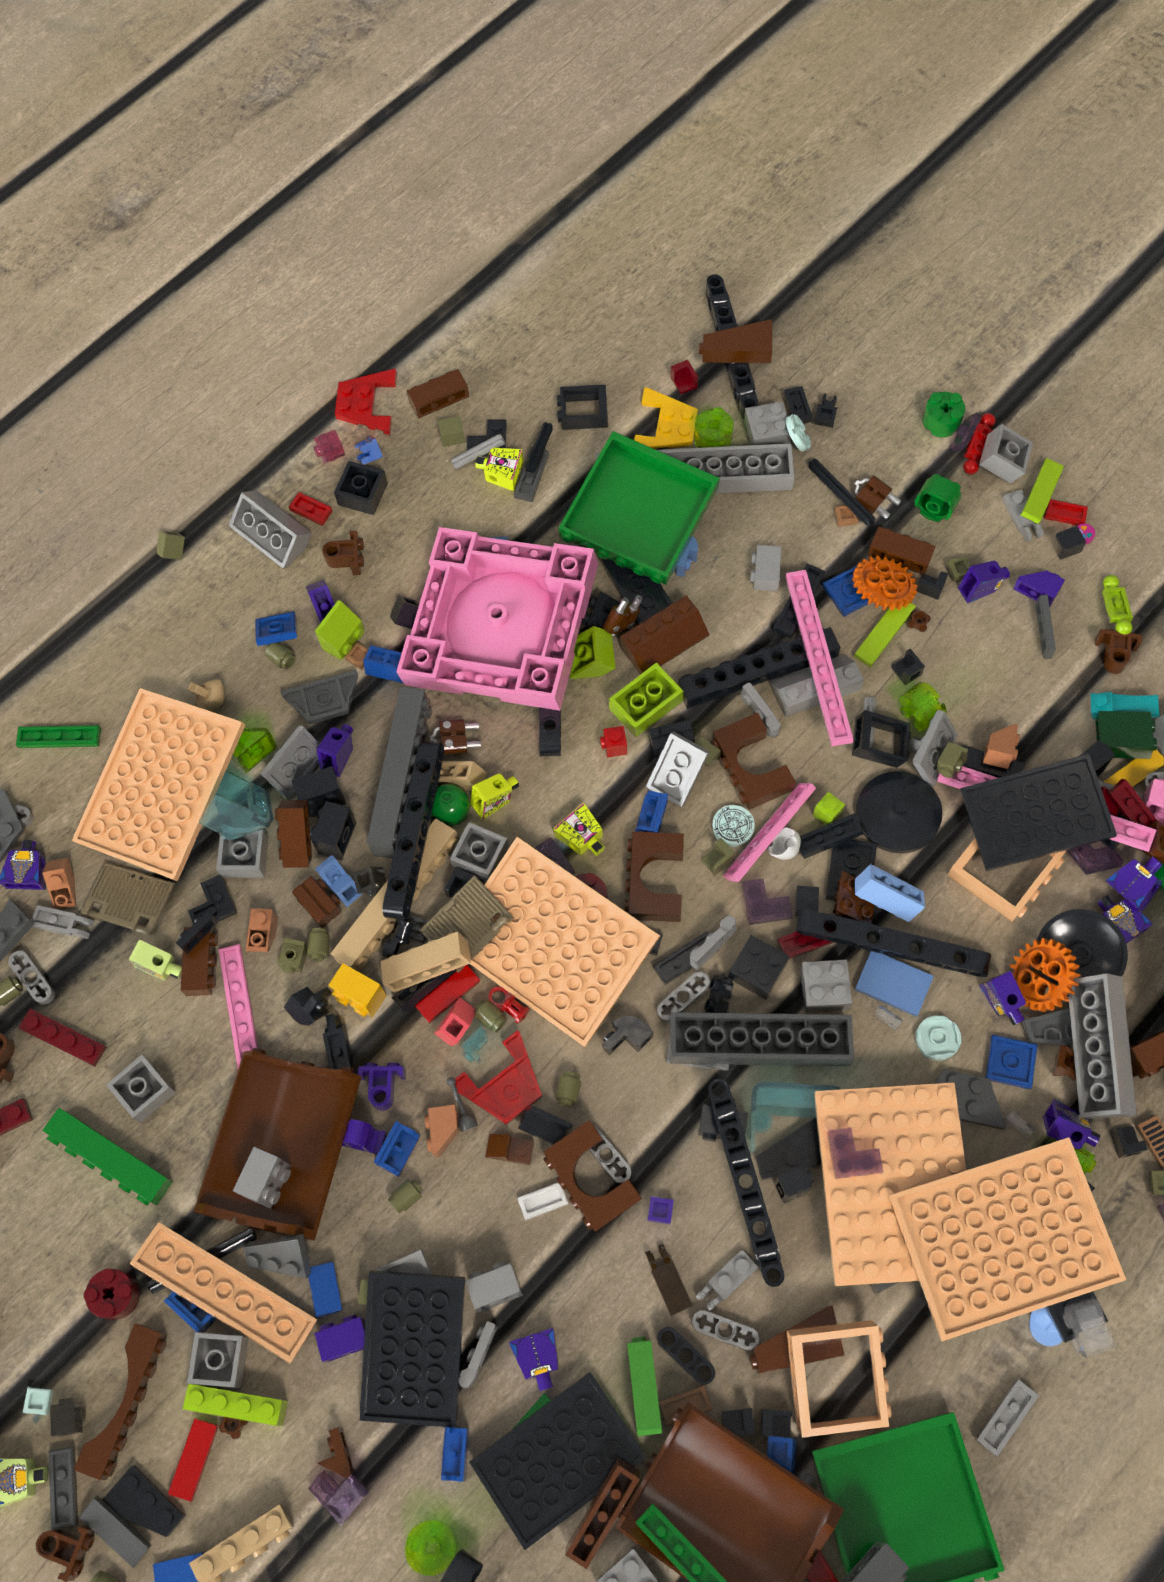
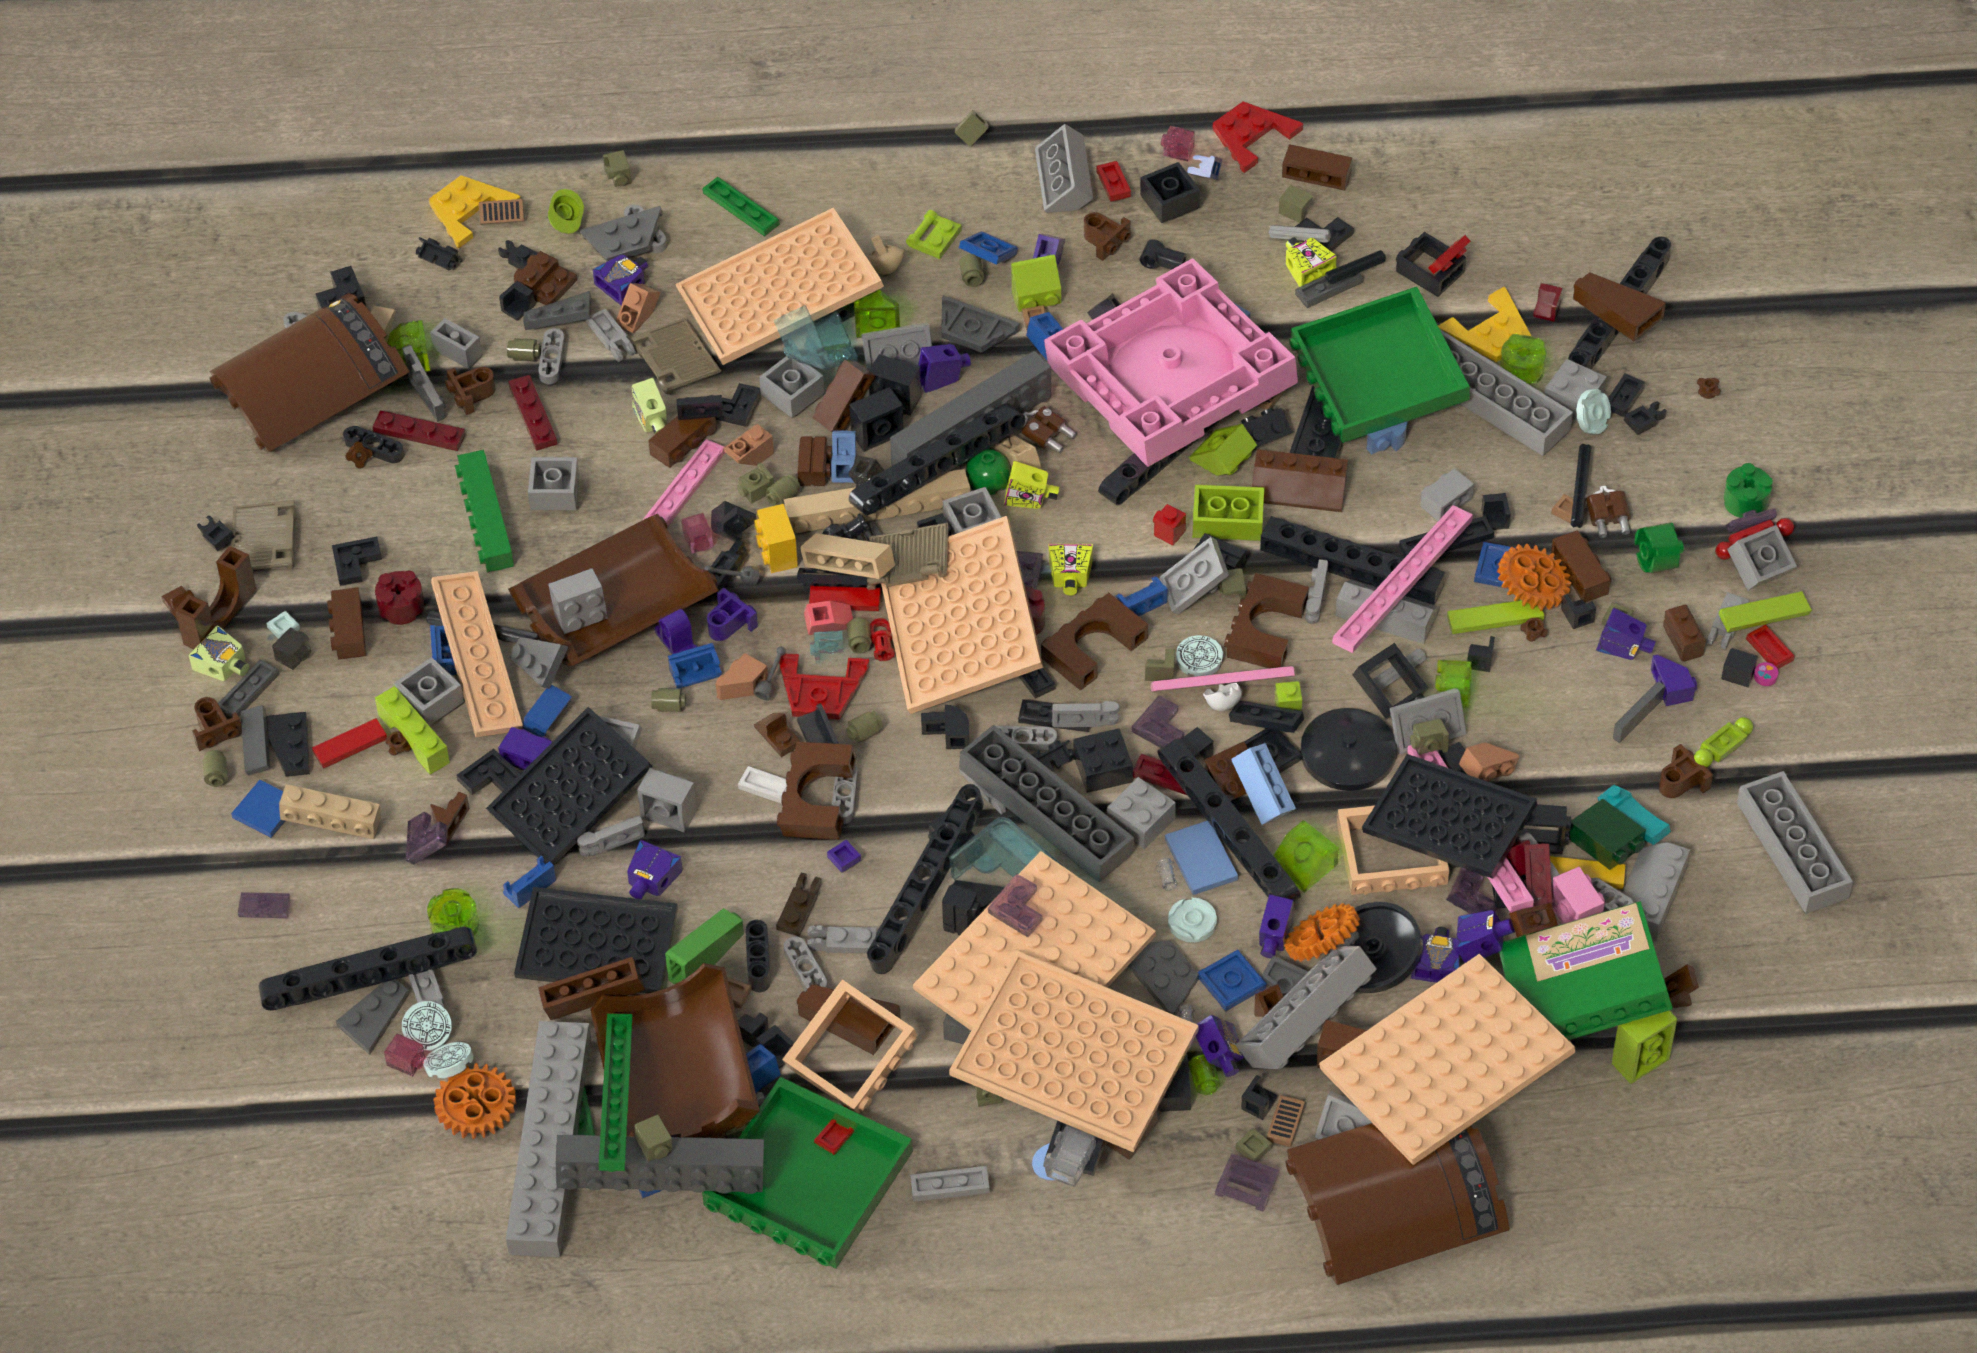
camera: 40 degrees right, 15 degrees down
(34, 1290) = (351, 554): none -> black plate
(90, 1354) = (347, 623): none -> reddish brown brick
(100, 1453) = (296, 686): reddish brown arch -> none
(230, 646) = (940, 237): none -> lime plate
(290, 1034) = (697, 533): none -> clear pink brick
(329, 1379) = (488, 769): none -> black plate
(361, 1036) = (748, 574): none -> dark grey hinge
(397, 542) = (1157, 255): none -> black piece
(598, 391) = (1455, 250): none -> red plate
(622, 616) = (1273, 437): reddish brown piece -> none
(809, 553) = (1496, 510): none -> black panel
(840, 359) = (1708, 387): none -> reddish brown plate
(888, 1454) = (833, 1136): none -> red tile
(962, 921) = (1306, 855): none -> clear neon green slope
(1012, 546) = (1684, 633): none -> reddish brown brick

